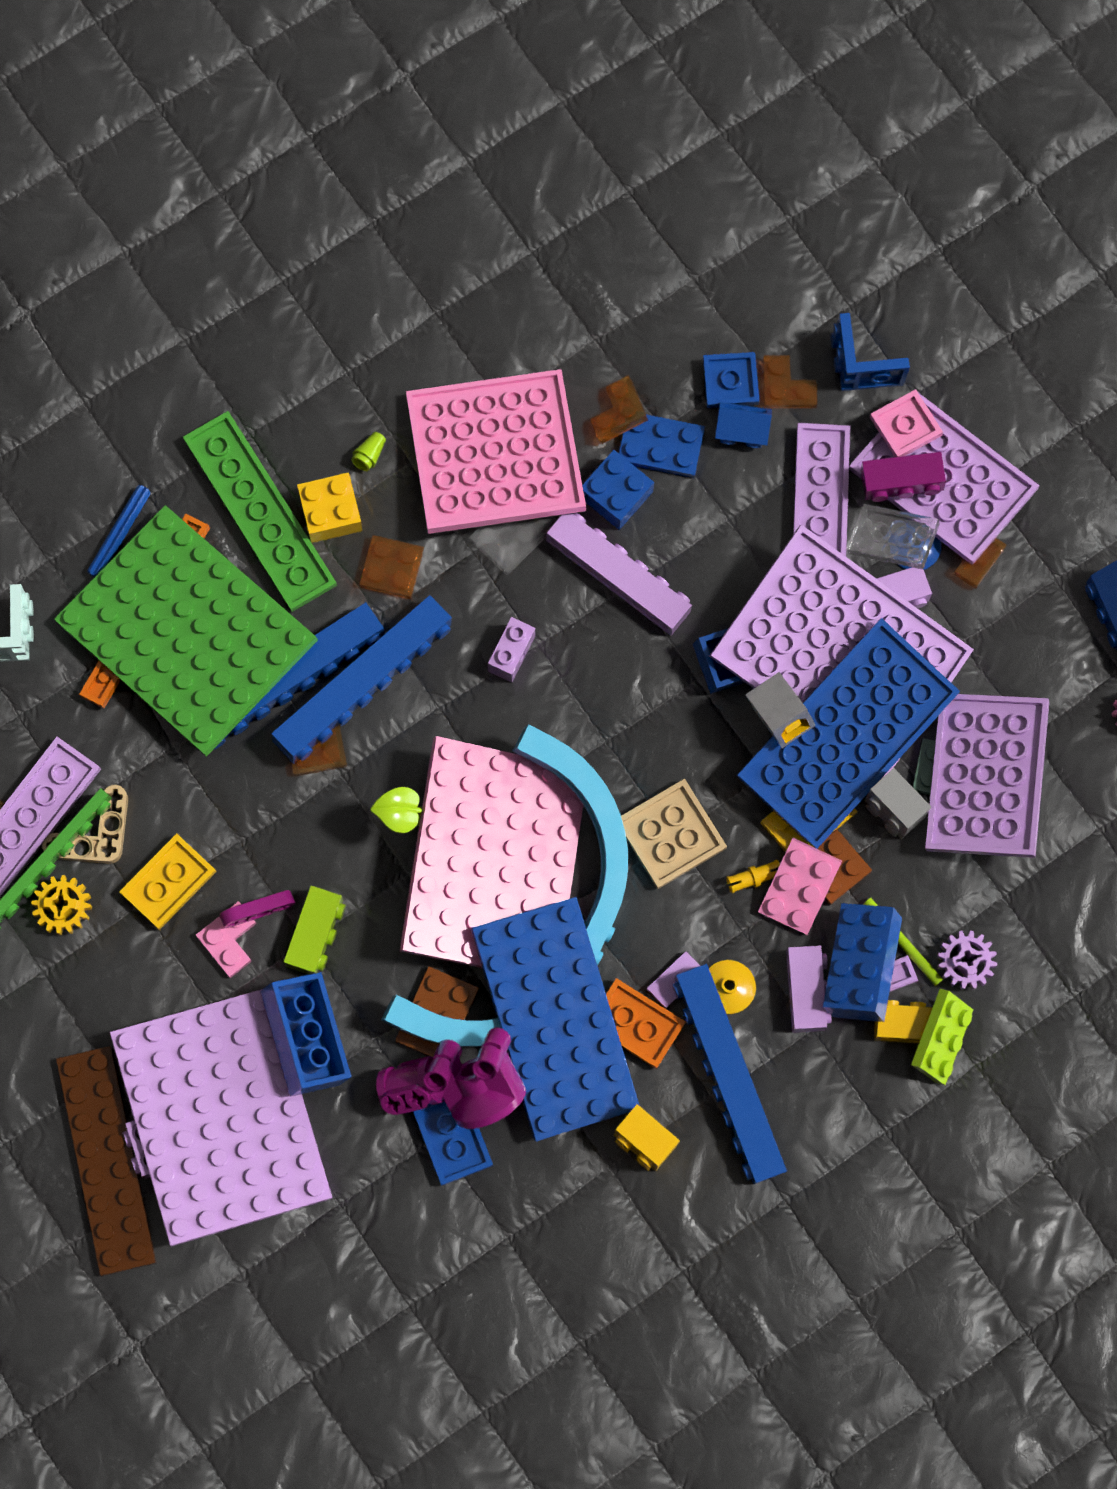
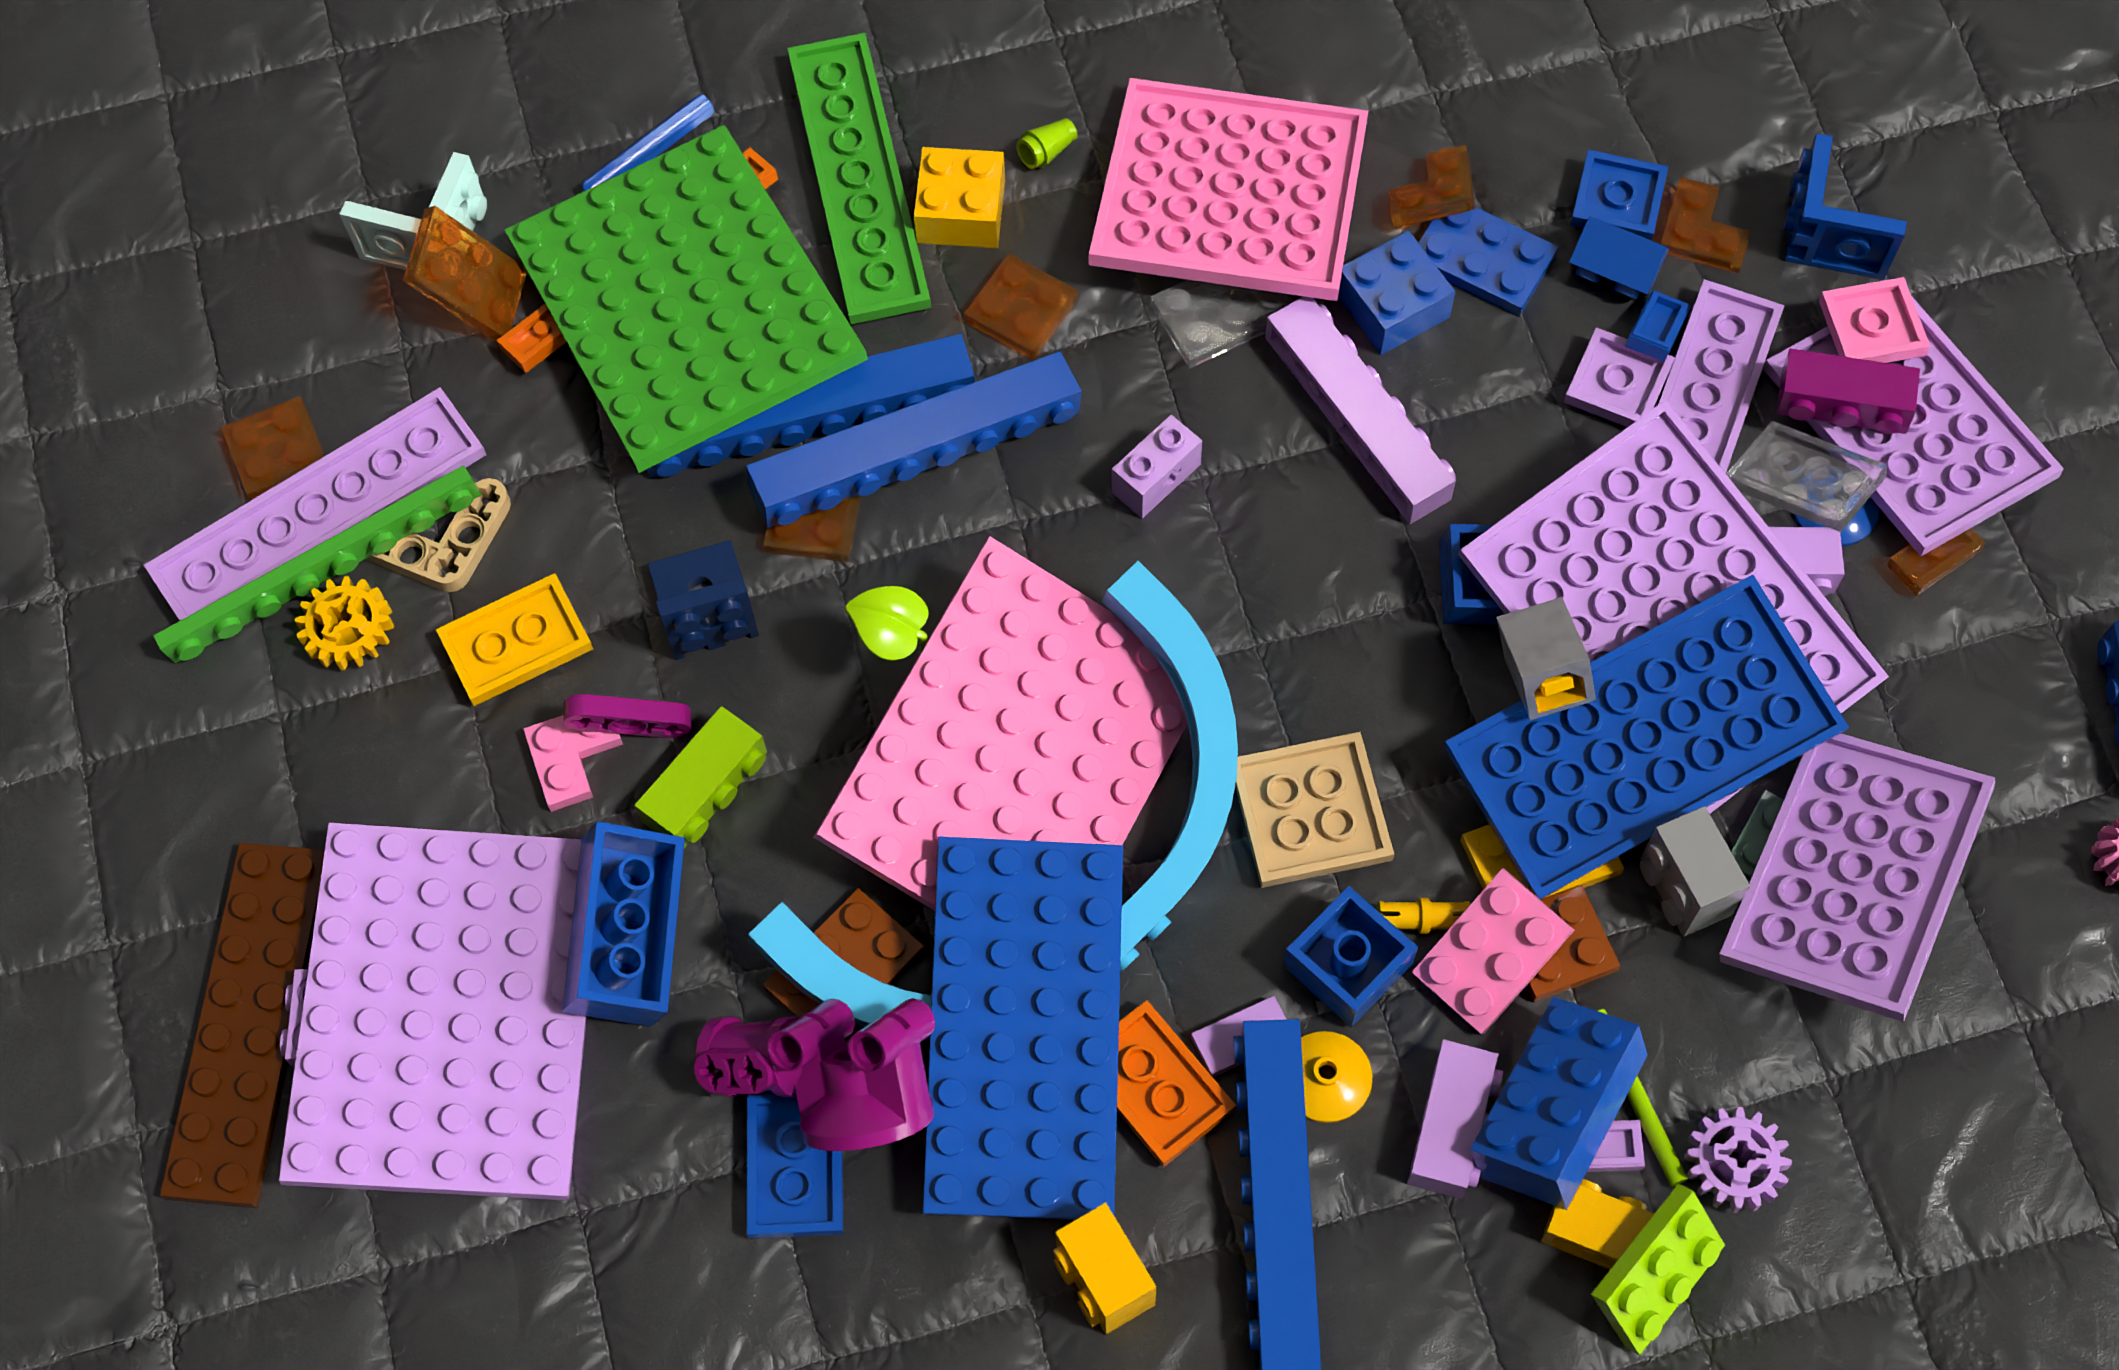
camera: 25 degrees right, 10 degrees down
(47, 661) = (465, 274): none -> clear orange plate
(280, 832) = (708, 613): none -> dark blue bracket
(721, 915) = (1350, 956): none -> blue brick
(766, 504) = (1617, 380): none -> lavender plate
(779, 462) = (1658, 326): none -> blue tile

